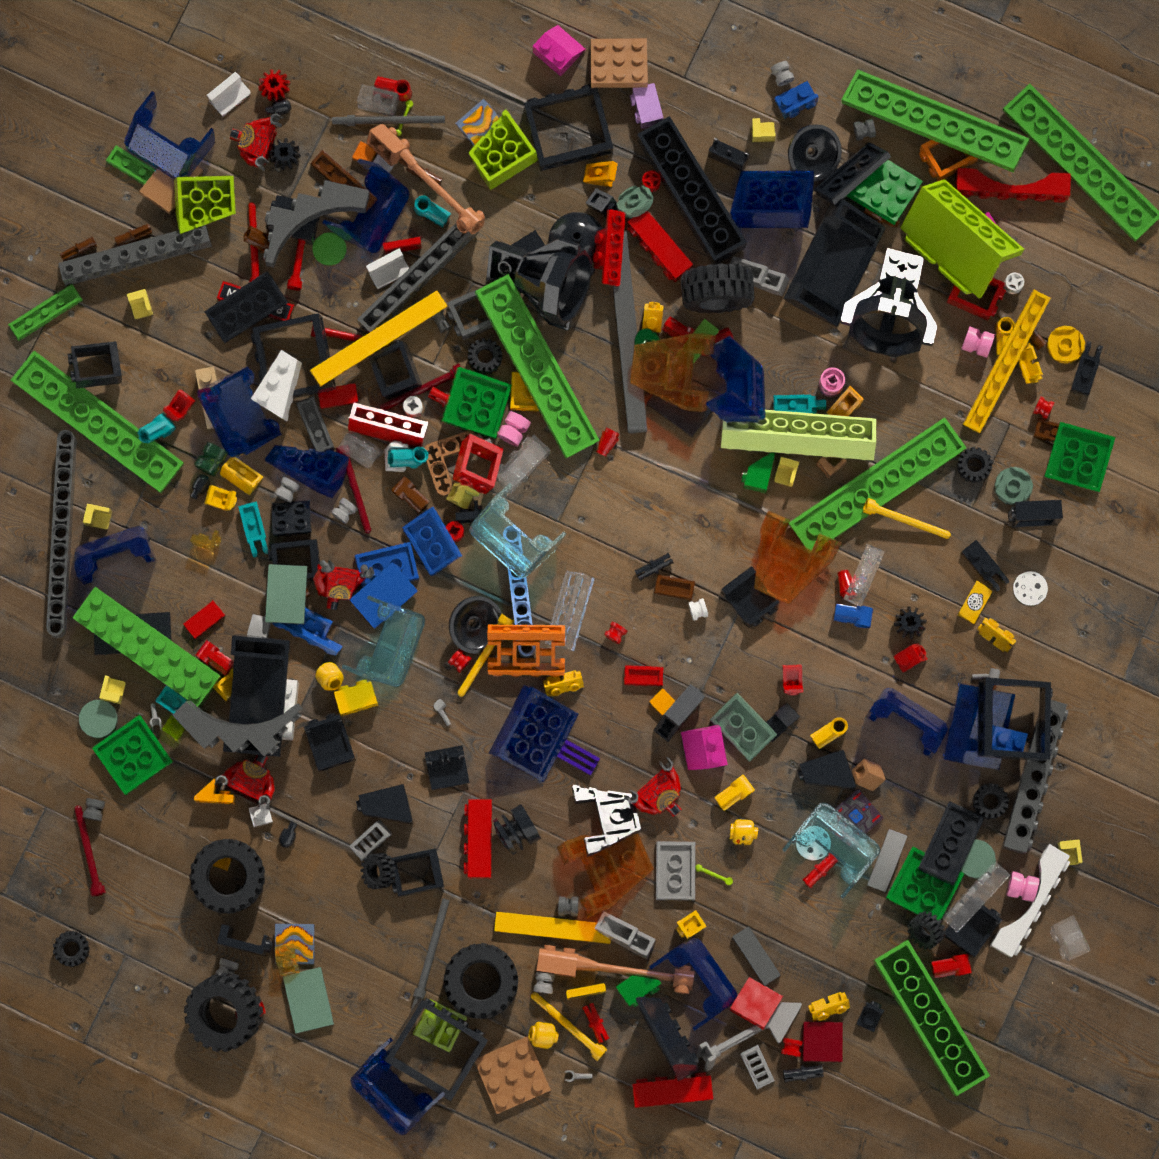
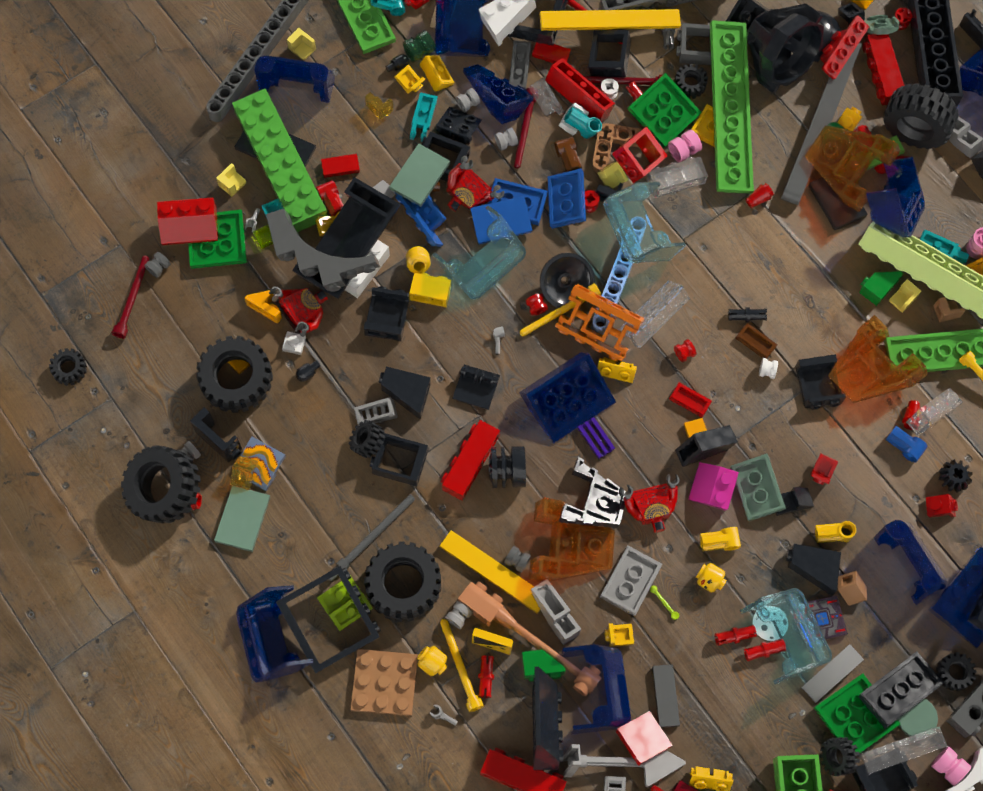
camera: 25 degrees right, 10 degrees down
(98, 719) = (208, 189): sand green tile -> none
(99, 755) = (187, 221): none -> red slope
(789, 871) = (735, 635): none -> red pin

